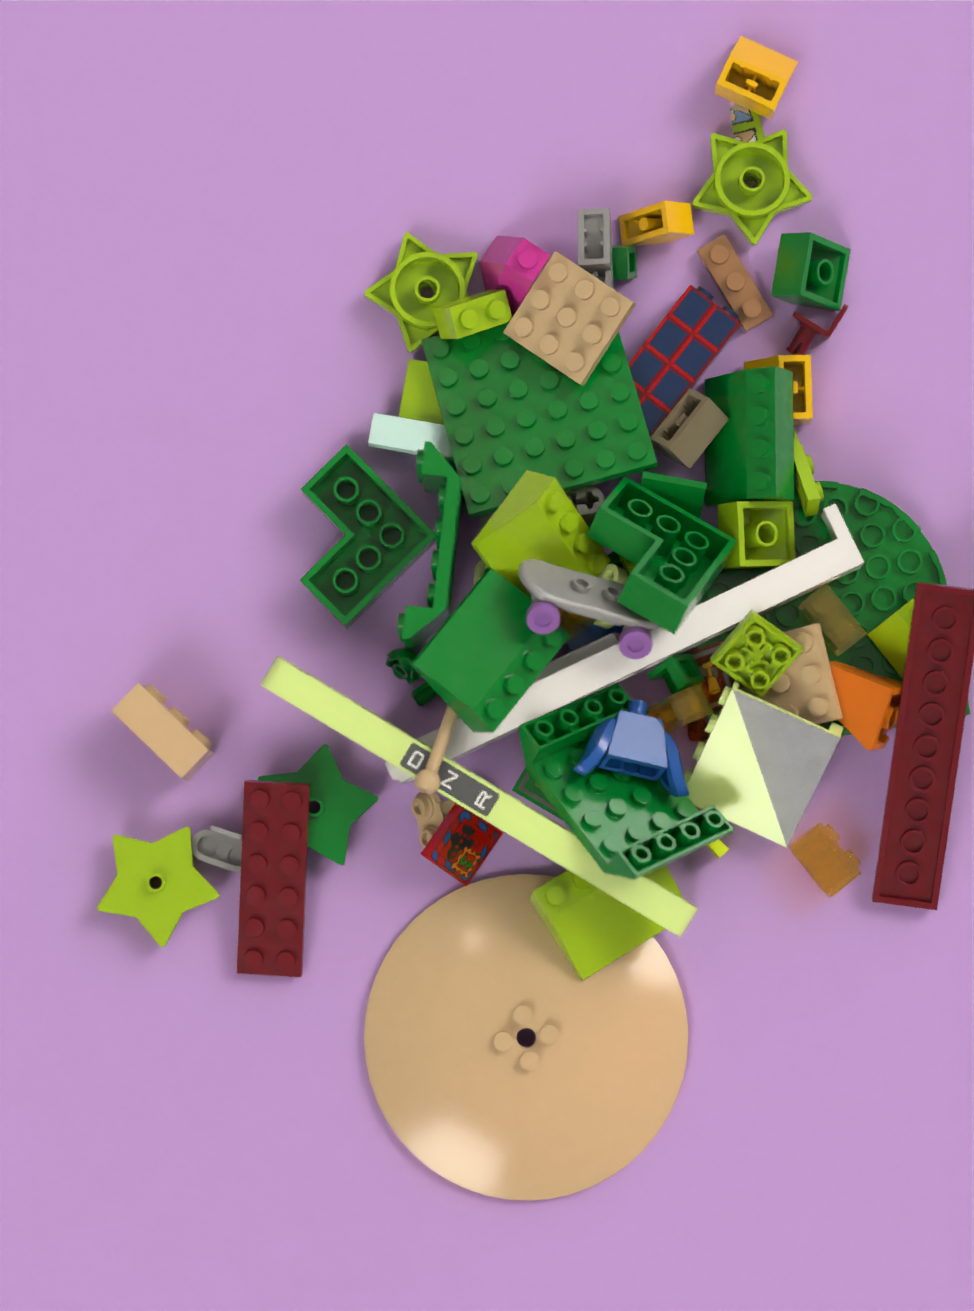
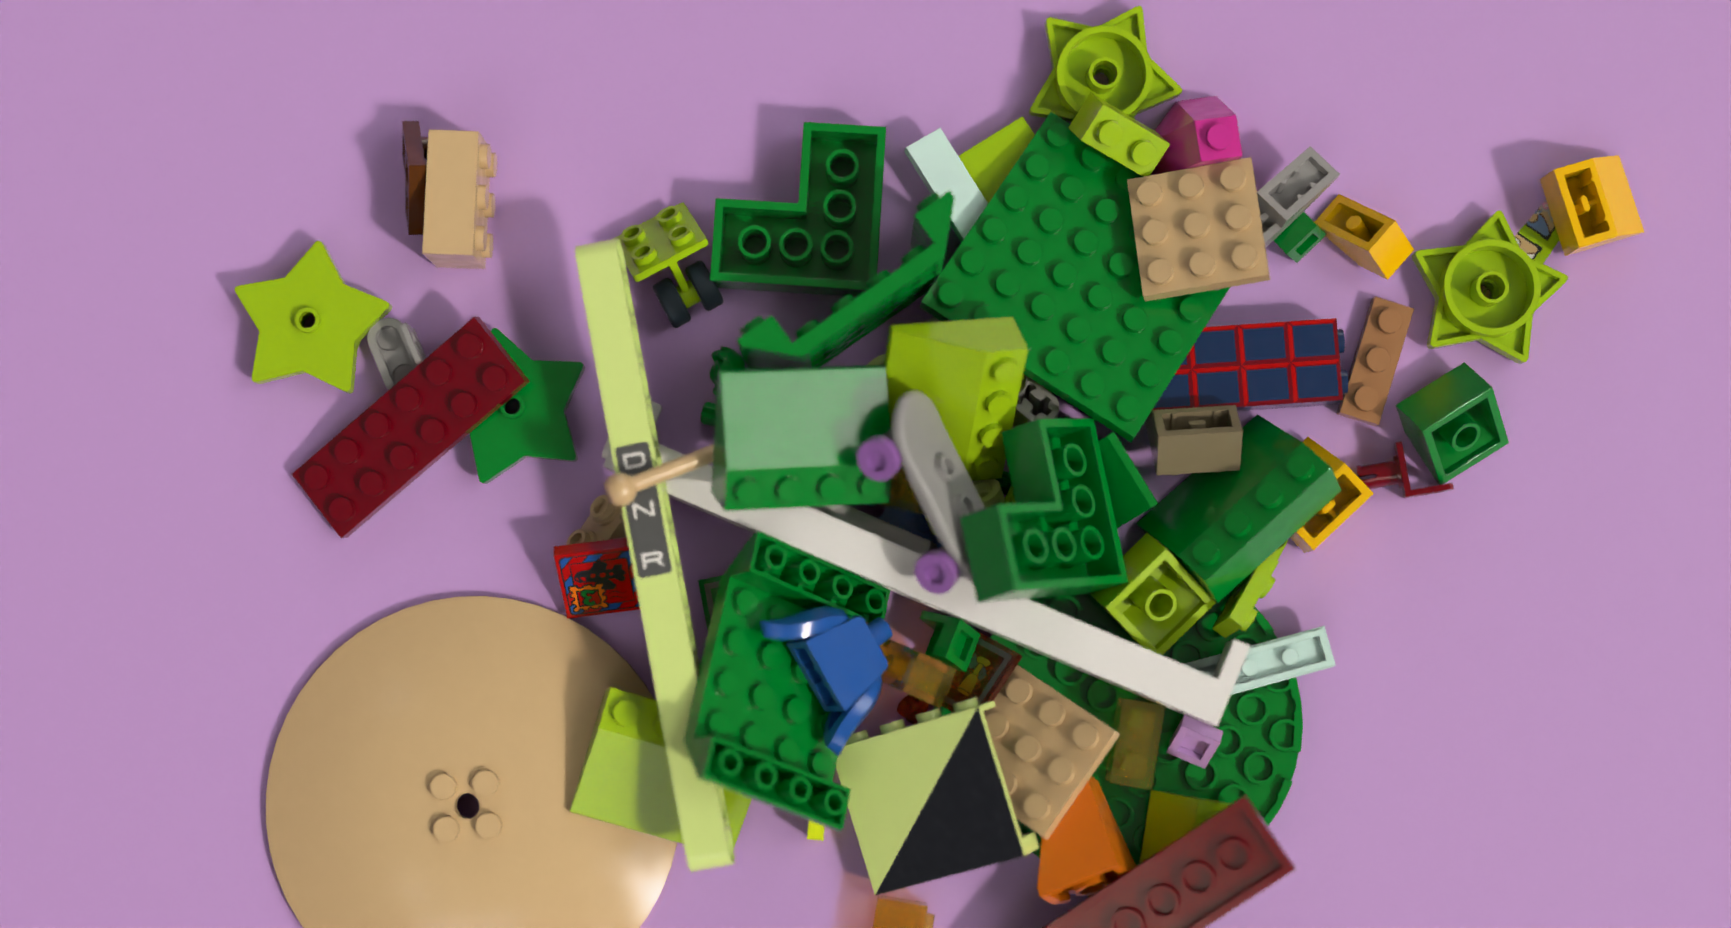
camera: 40 degrees right, 0 degrees up
(127, 742) = (415, 165): none -> reddish brown plate
(296, 635) = (660, 245): none -> lime plate
(756, 653) = (1034, 699): lime tile -> none
(857, 494) = (1277, 659): none -> light aqua tile
(861, 584) = (1194, 741): none -> lavender plate

